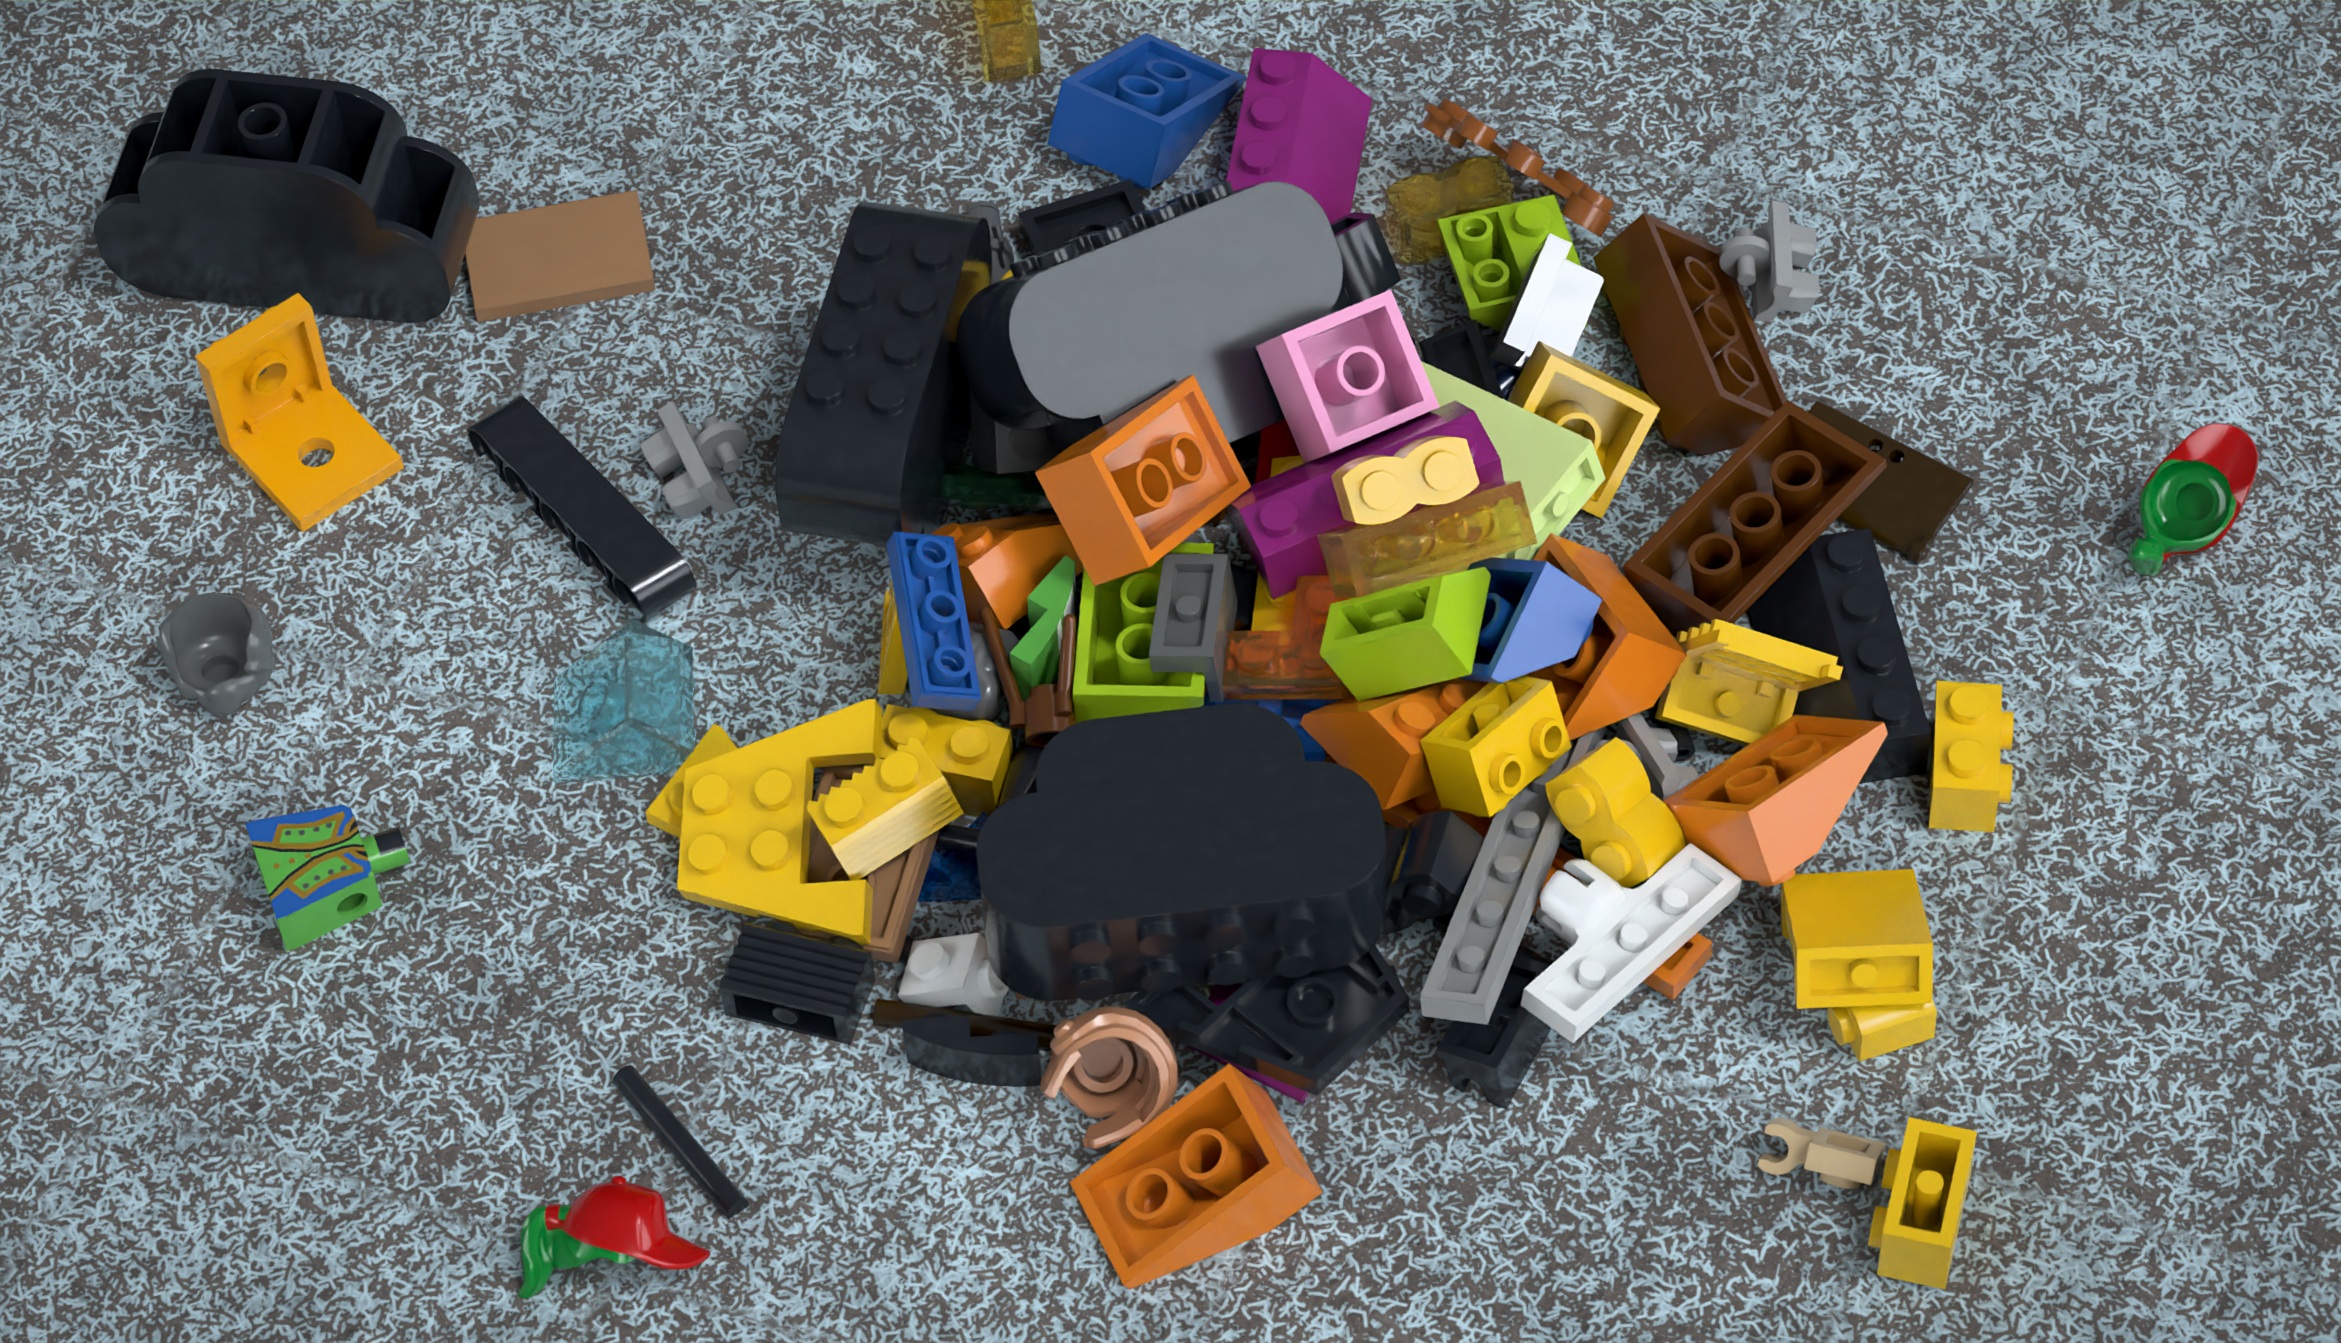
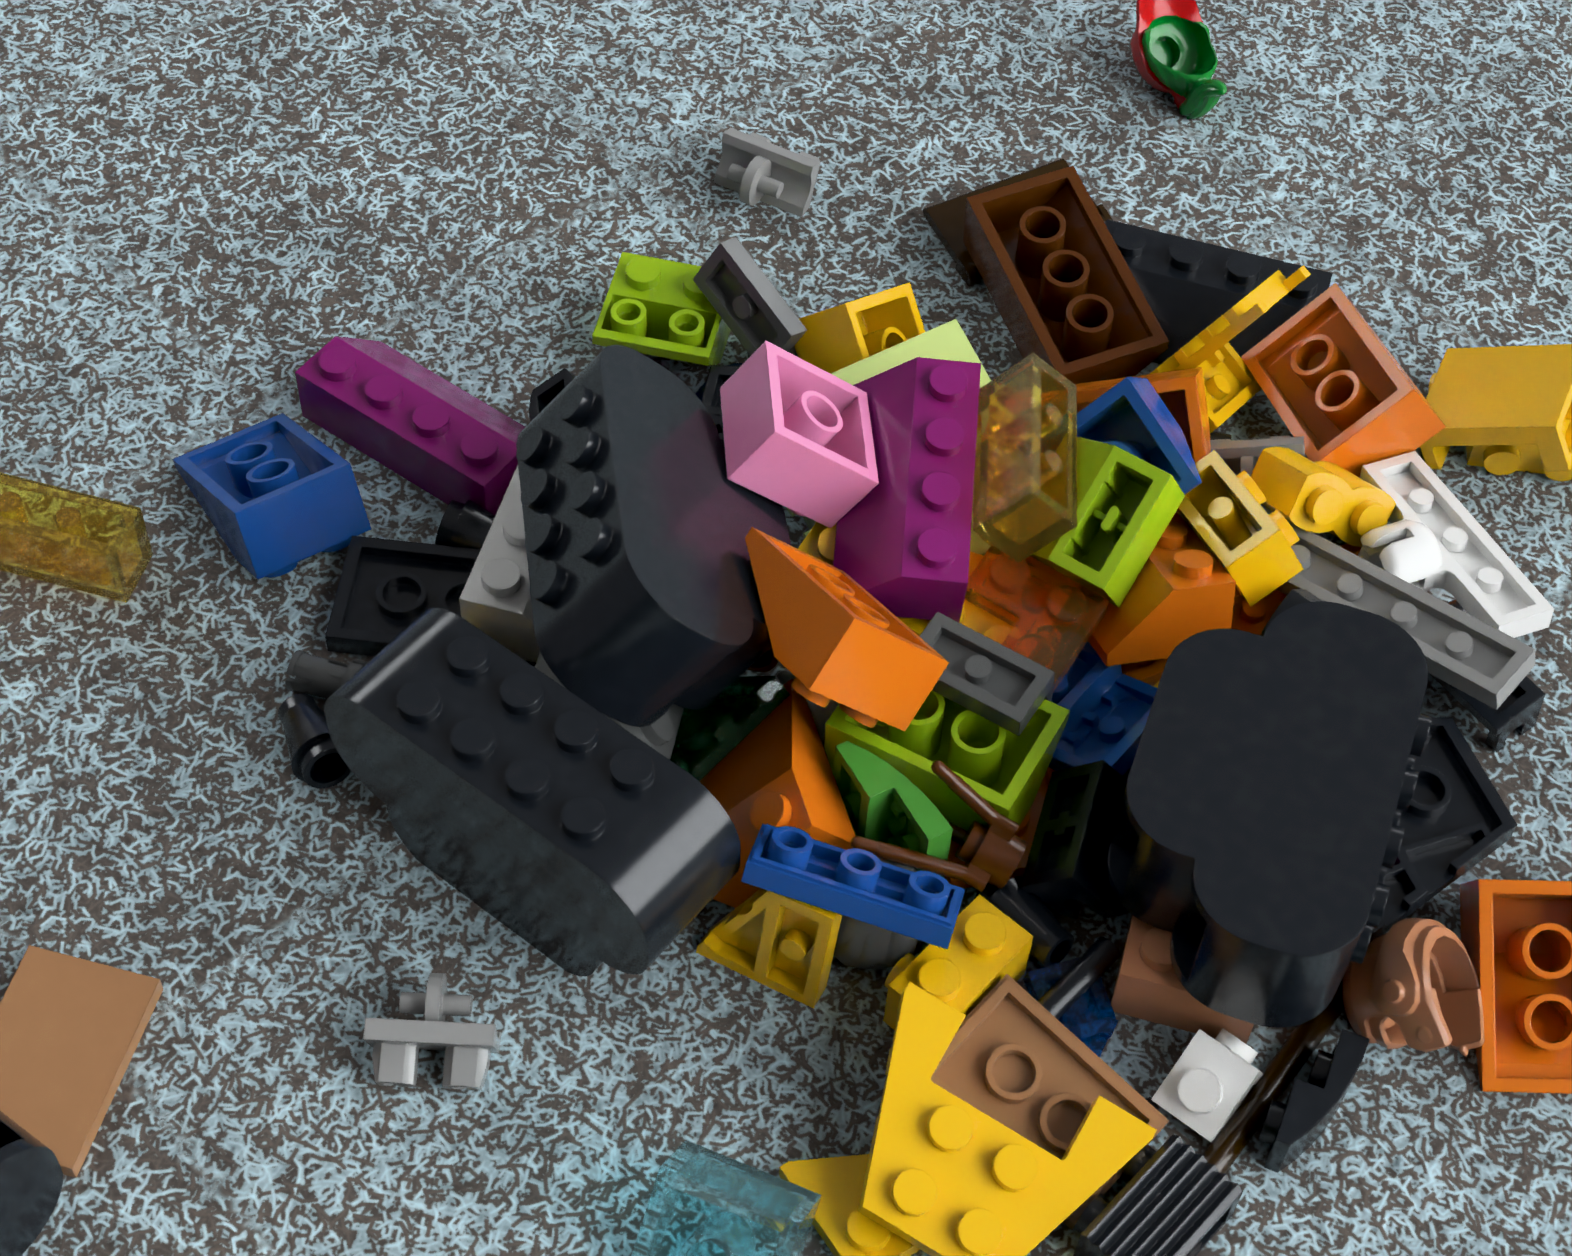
camera: 70 degrees left, 0 degrees up
(584, 506) = (416, 1171): black beam -> none
(884, 809) = (1042, 1036): yellow brick -> none
(1422, 198) = (565, 324): clear yellow brick -> none
(1422, 472) = (989, 425): yellow brick -> none
(1458, 125) = (488, 284): dark orange plant -> none
(1689, 336) = (815, 252): reddish brown slope -> none
(1966, 756) = (1363, 270): yellow brick -> none

